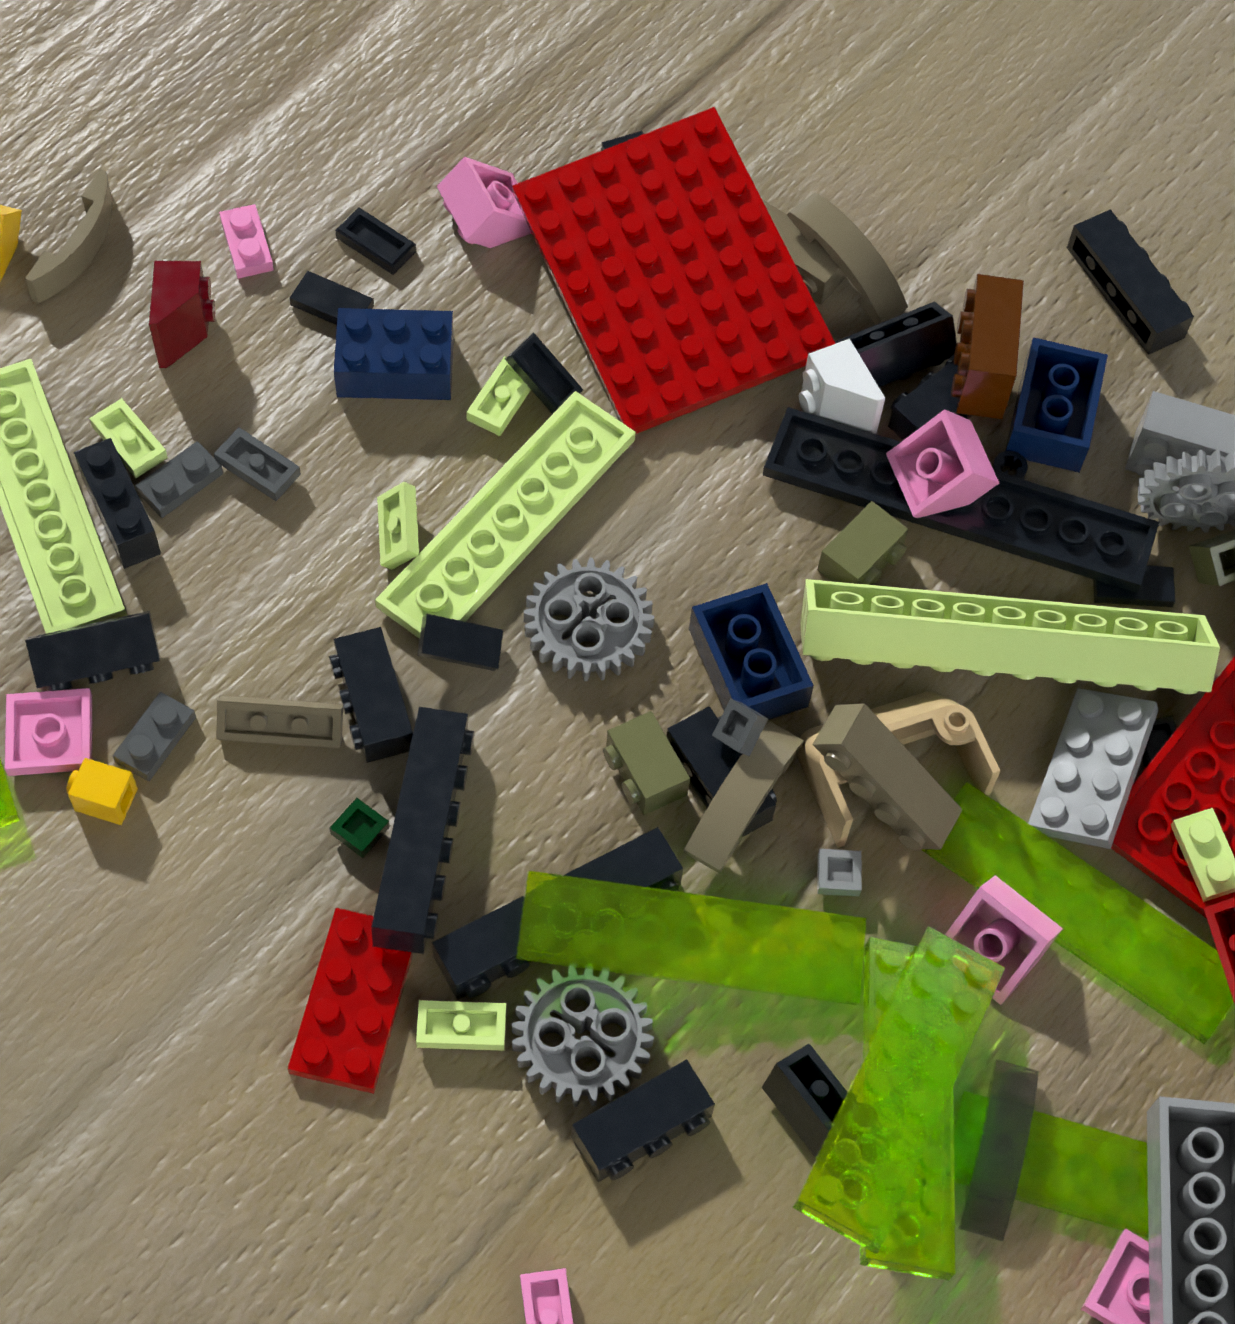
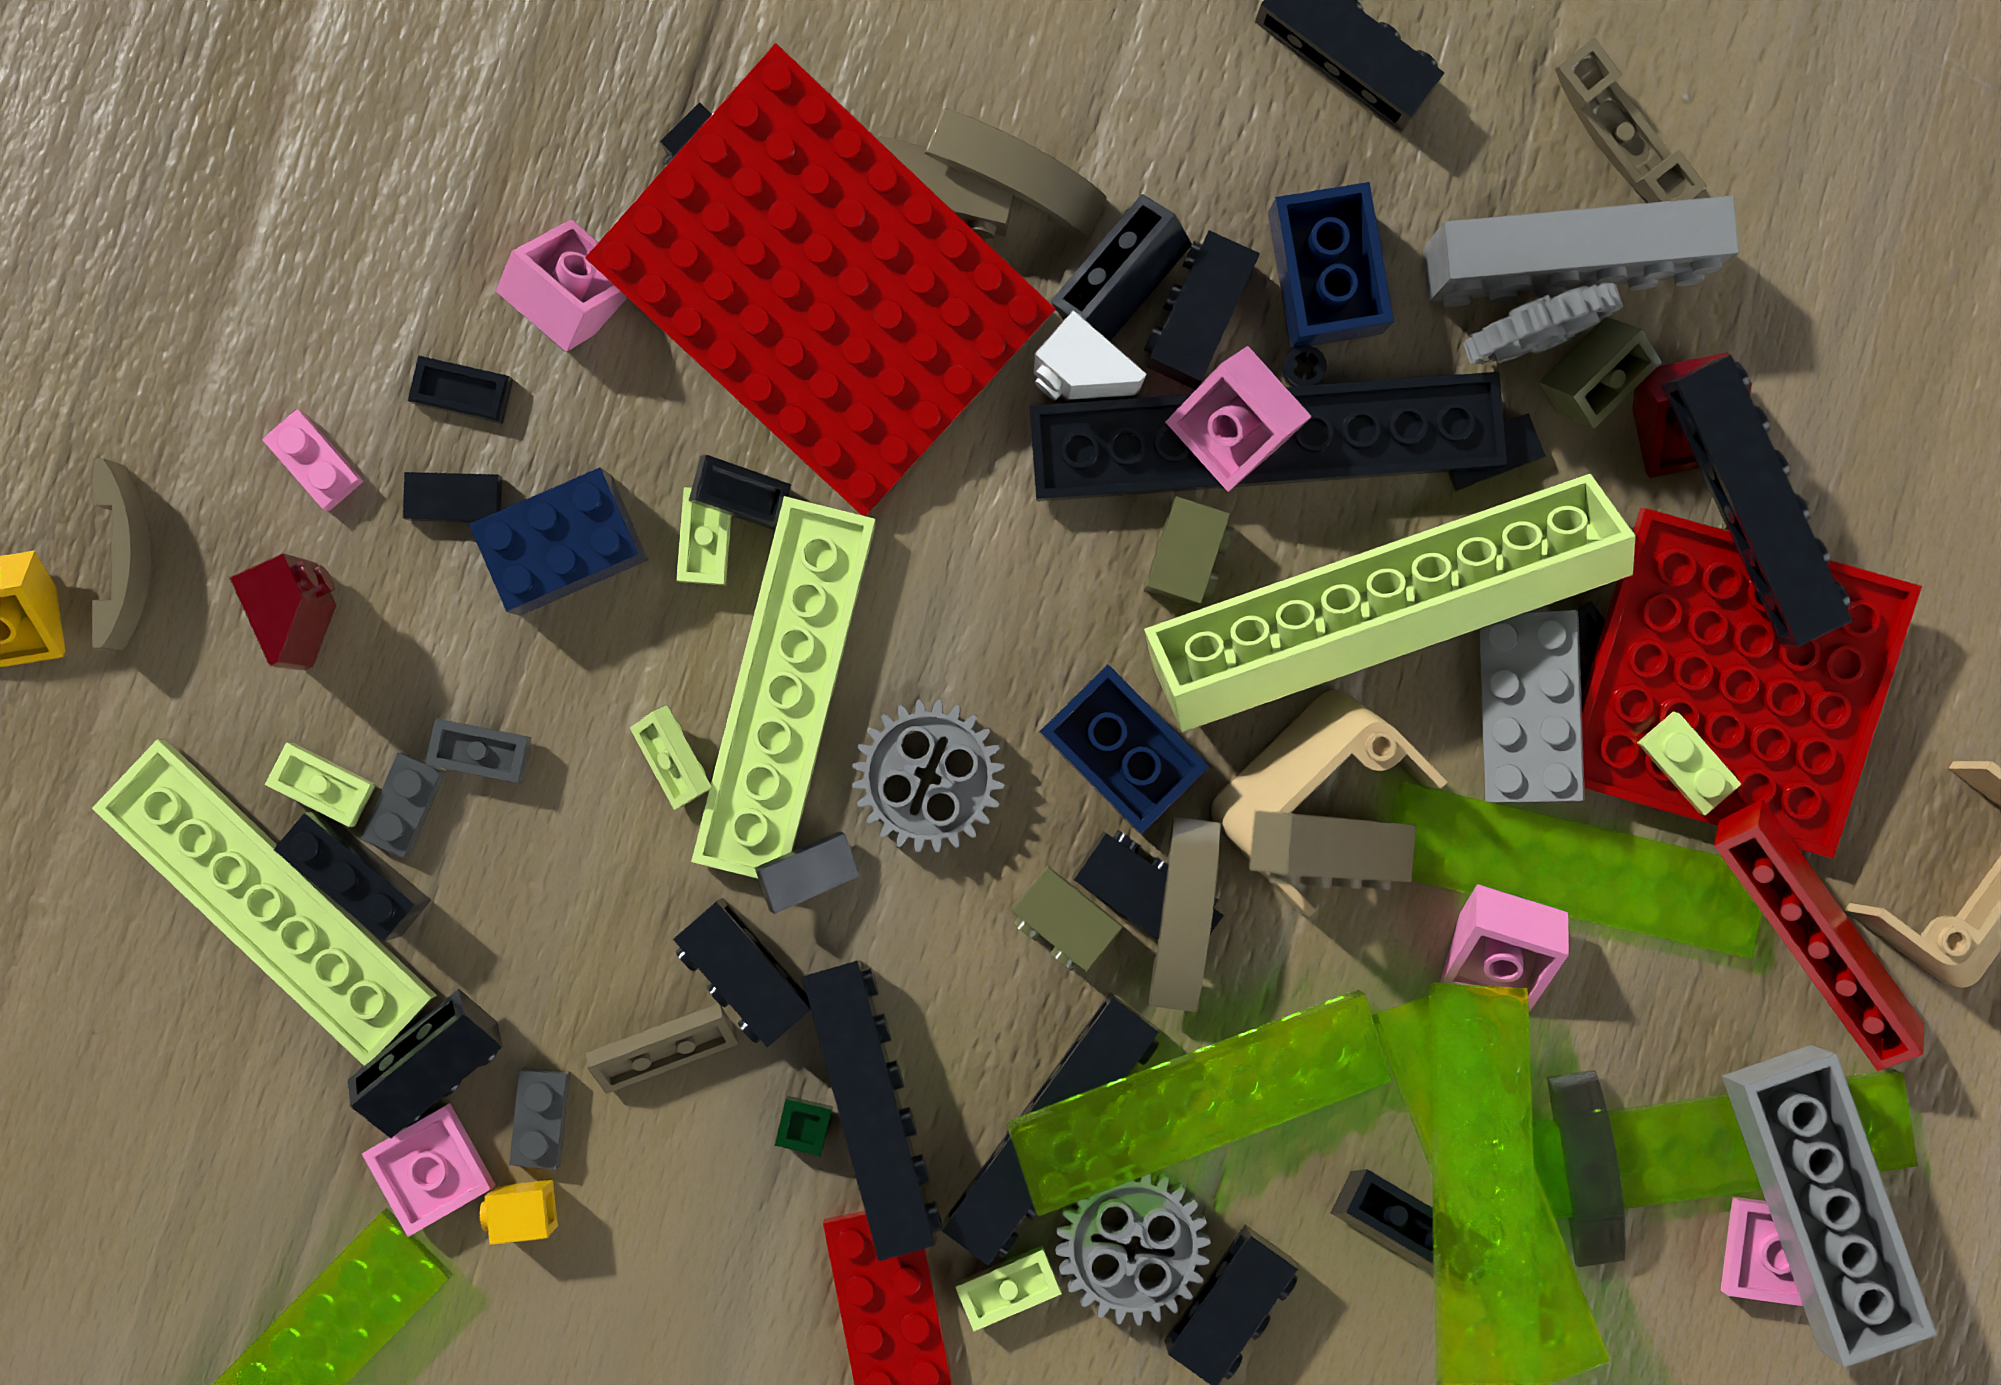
camera: 25 degrees left, 25 degrees up
(740, 727) = (1154, 859): dark grey plate -> none
(839, 872) = (1314, 947): light grey plate -> none
(988, 346) = (1236, 245): reddish brown brick -> none

